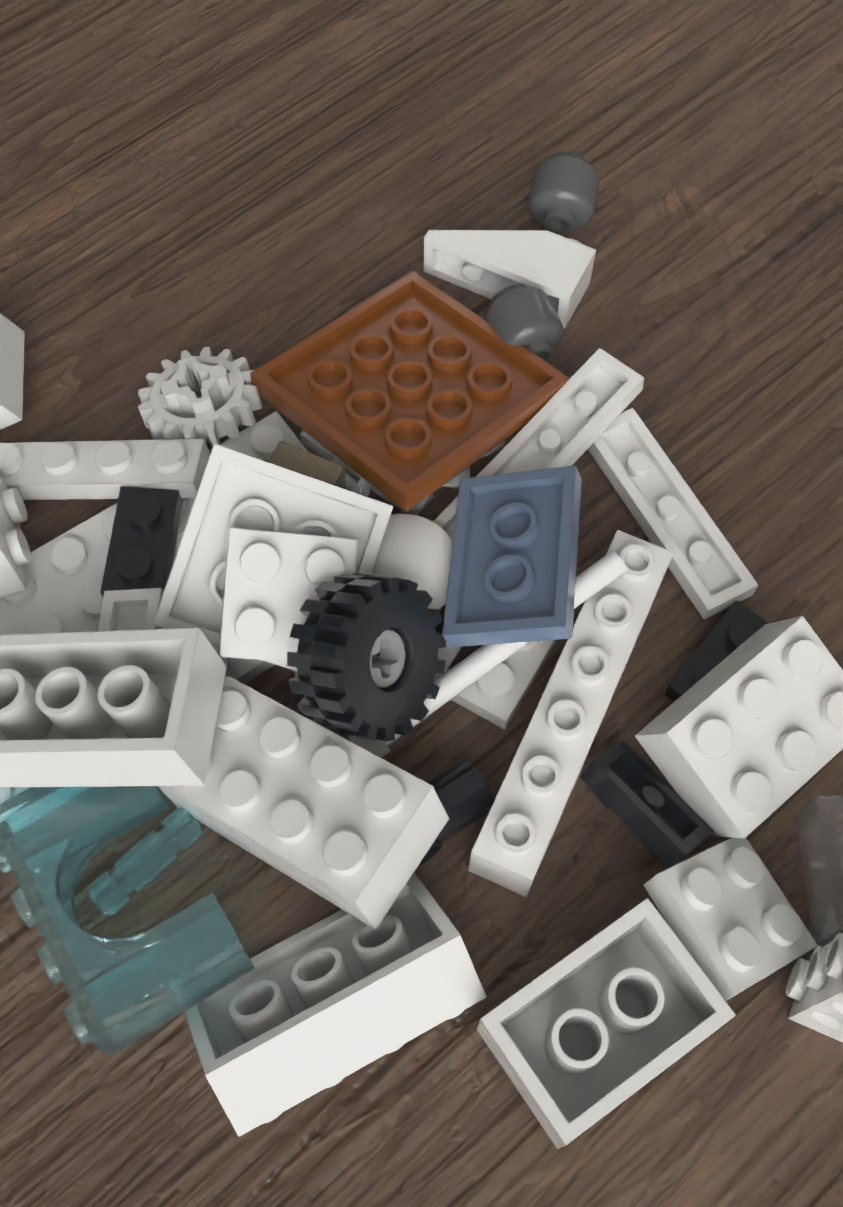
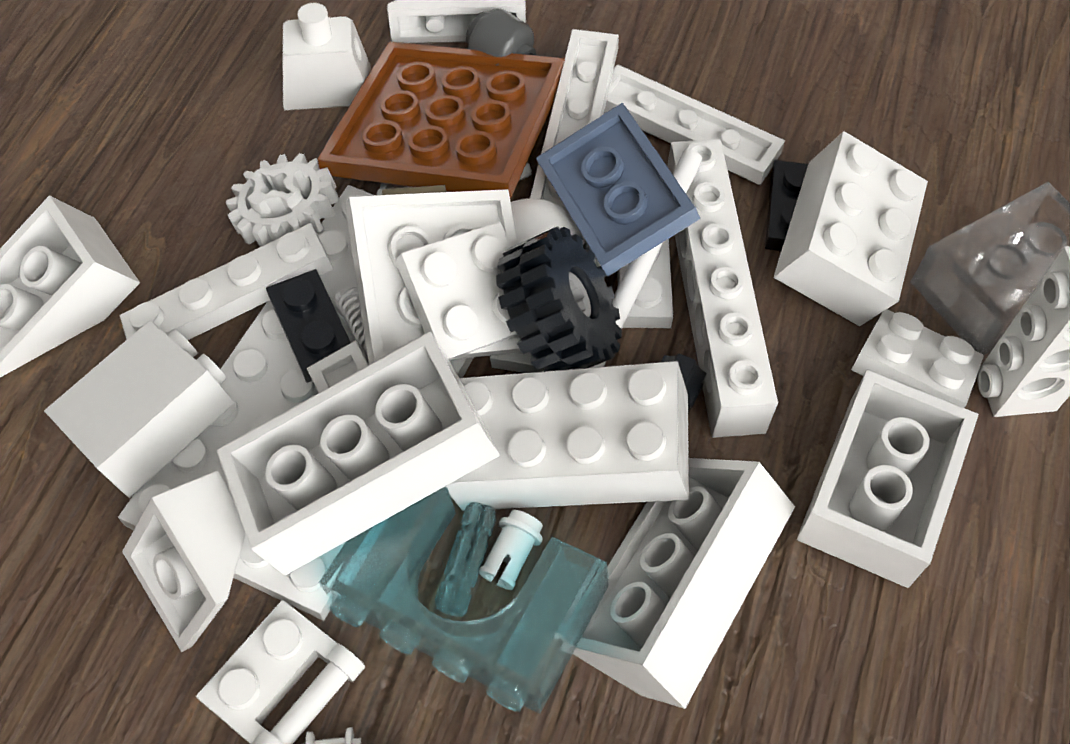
camera: 30 degrees left, 5 degrees down
(193, 873) = (512, 546): none -> white pin
(325, 264) = (321, 60): none -> white torso
(646, 804) = (825, 326): black plate -> none

